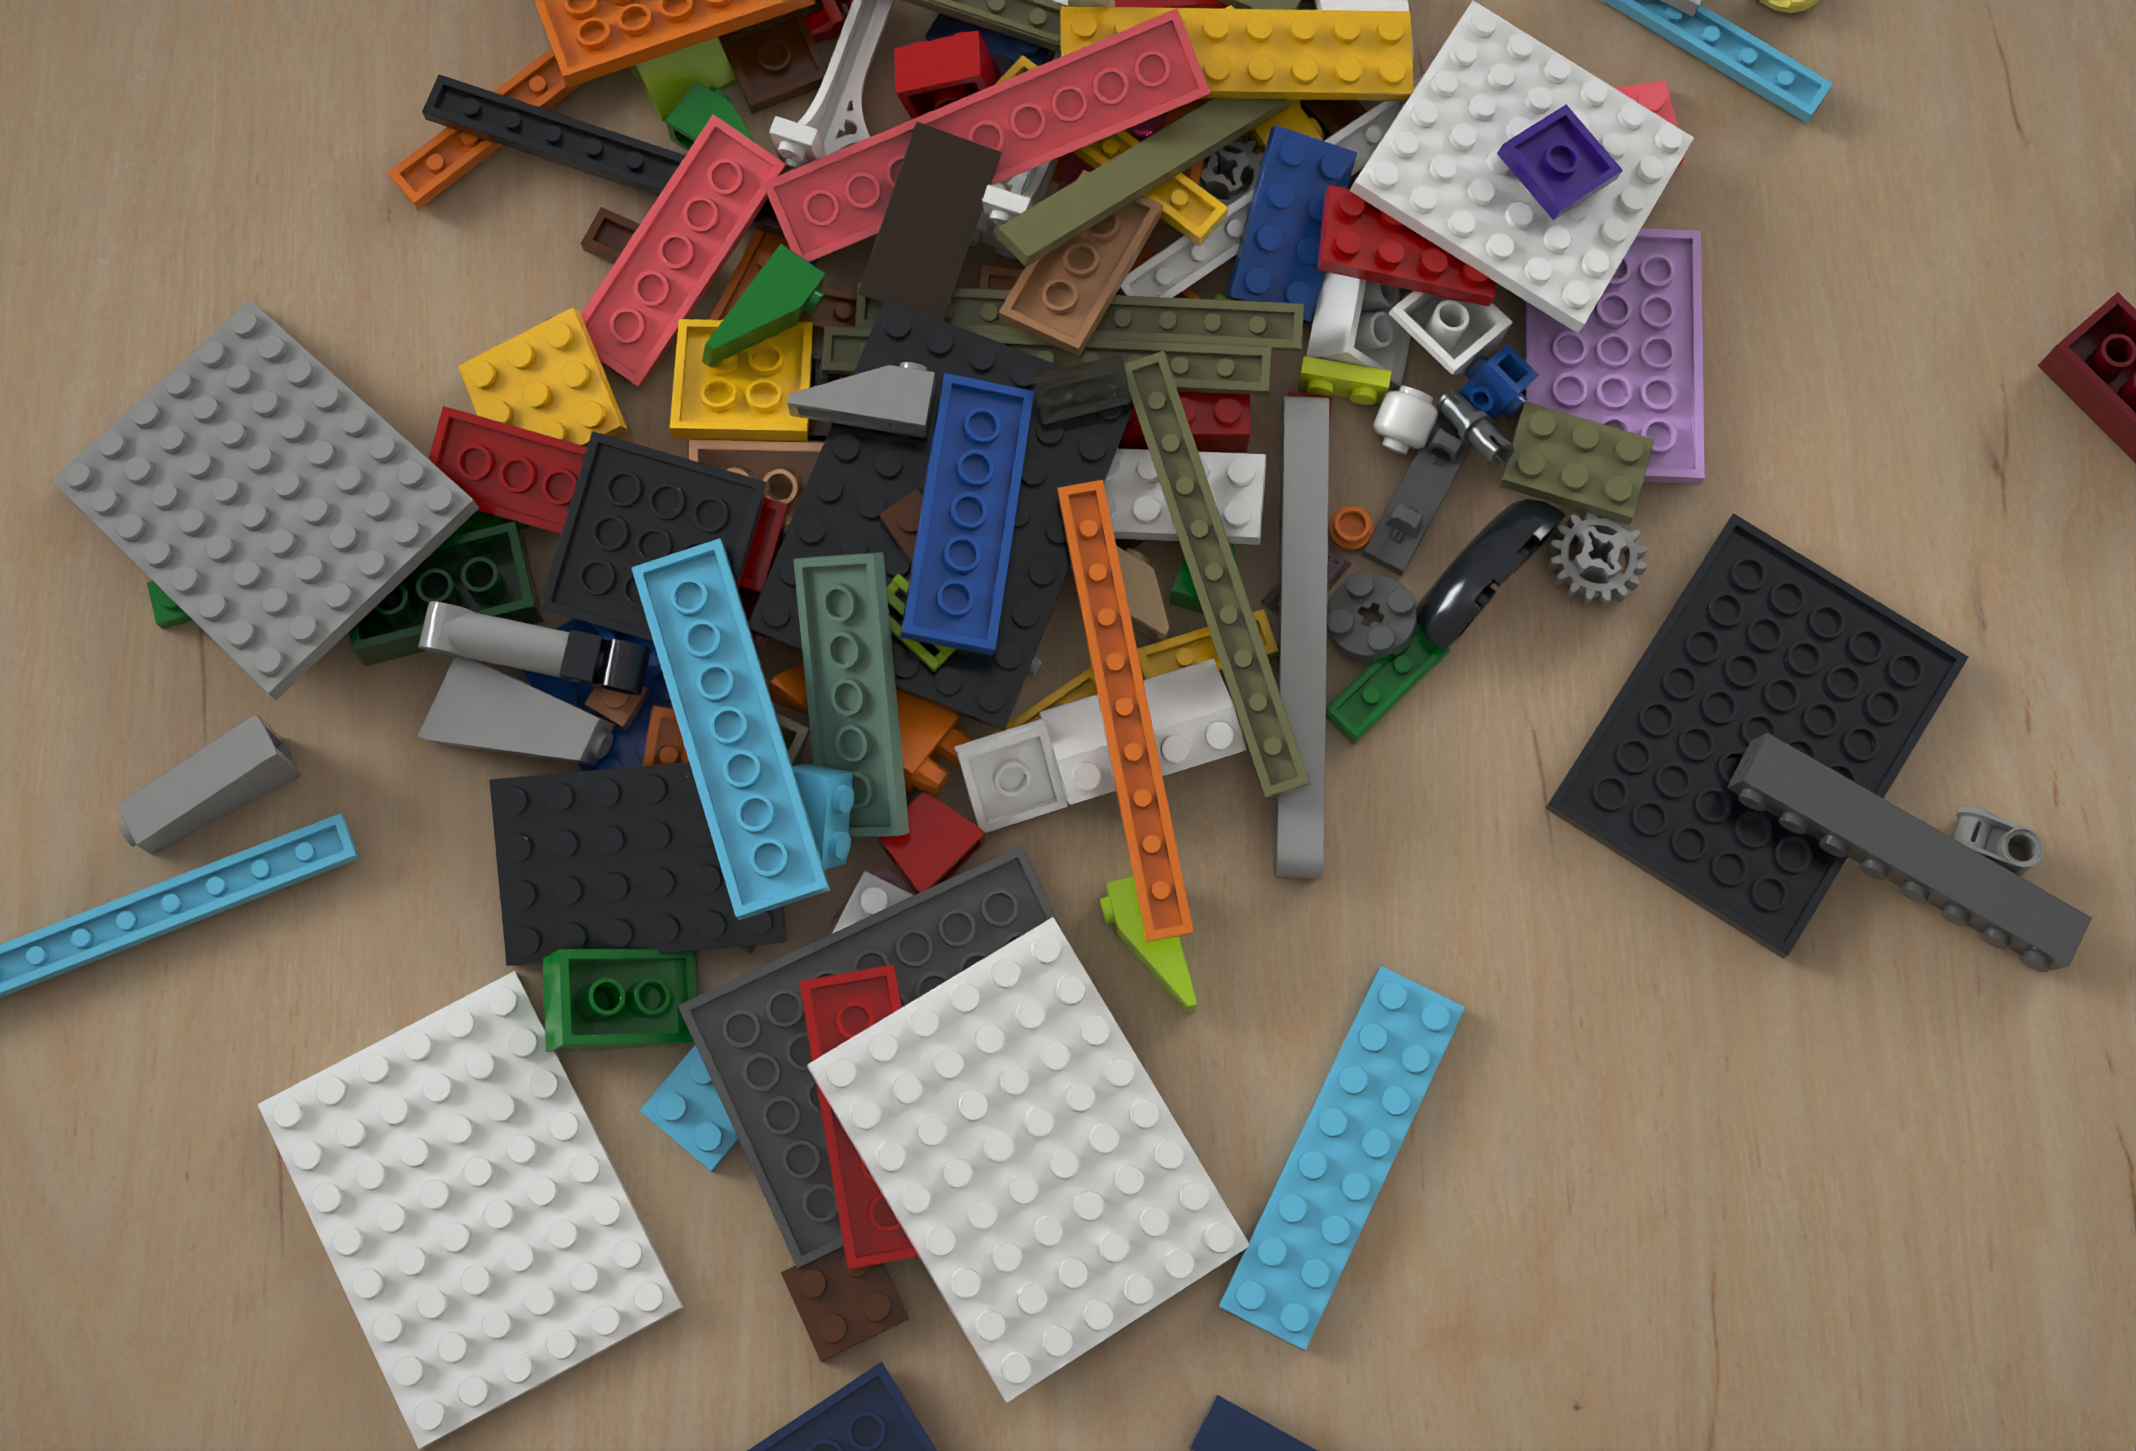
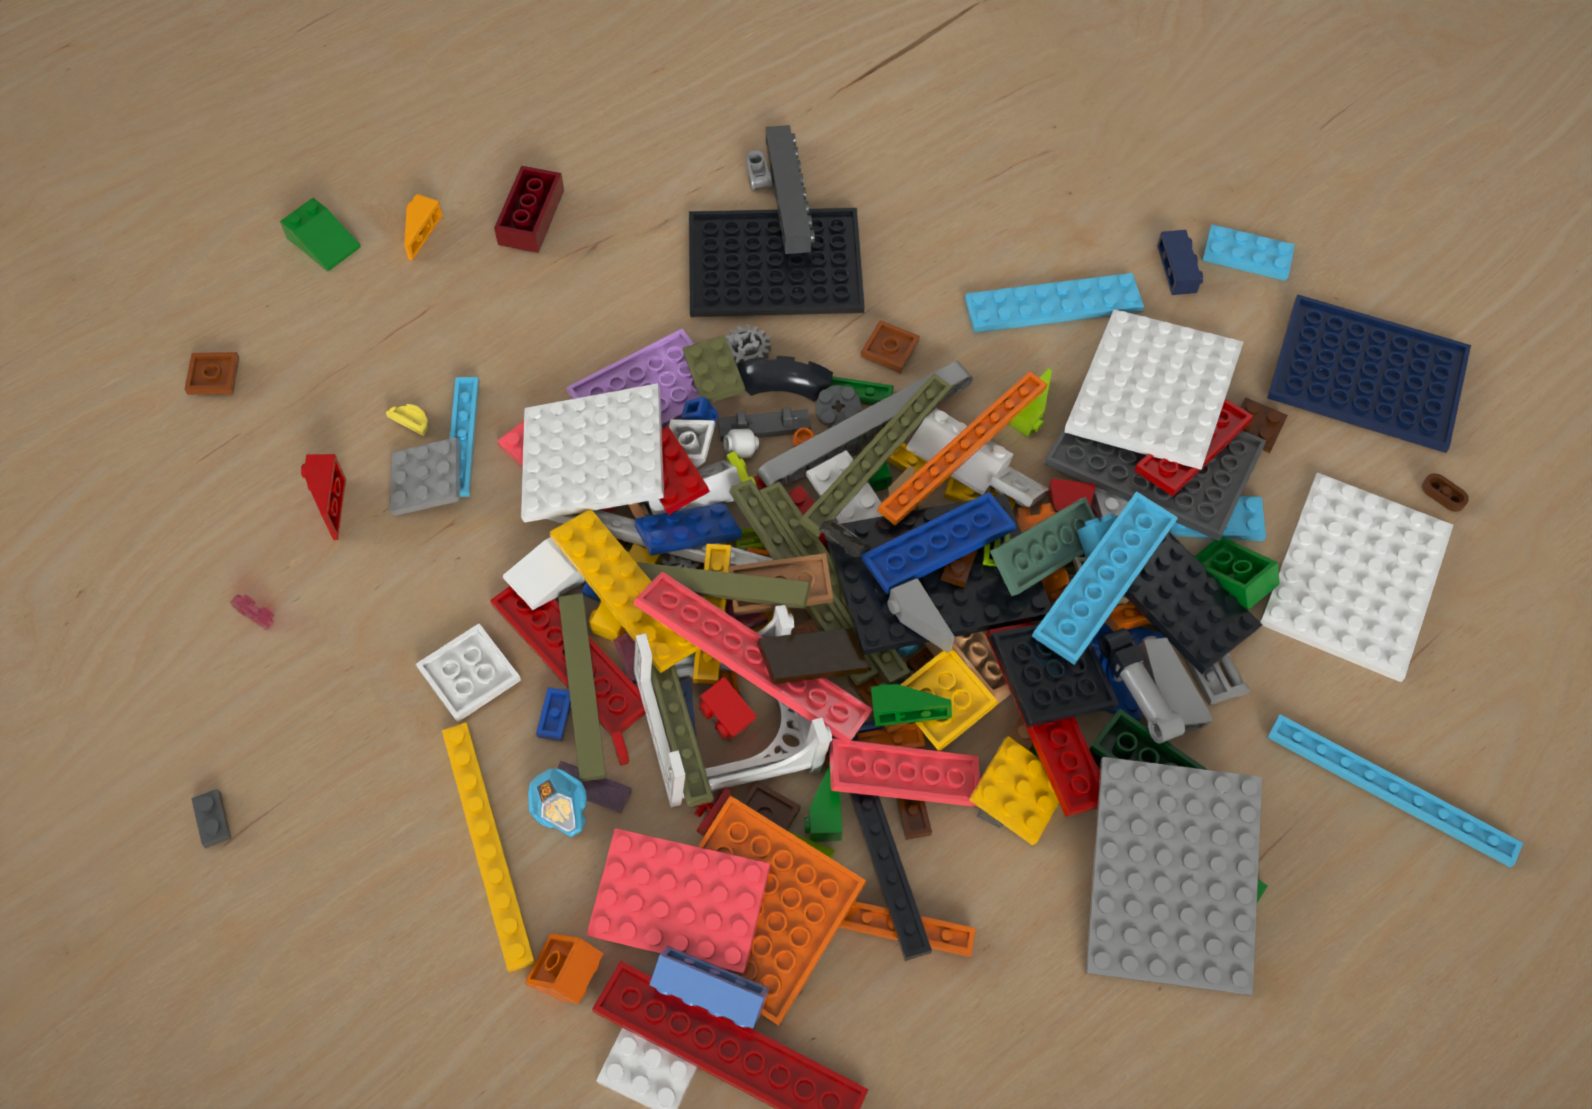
camera: 125 degrees left, 15 degrees down
(208, 786) = (1312, 795): light grey slope -> none
(467, 805) = (1214, 684): none -> light grey plate
(1439, 793) = (890, 346): none -> dark orange plate
(1475, 427) = (728, 410): dark grey pin -> none
(1559, 162) = (588, 428): dark purple plate -> none

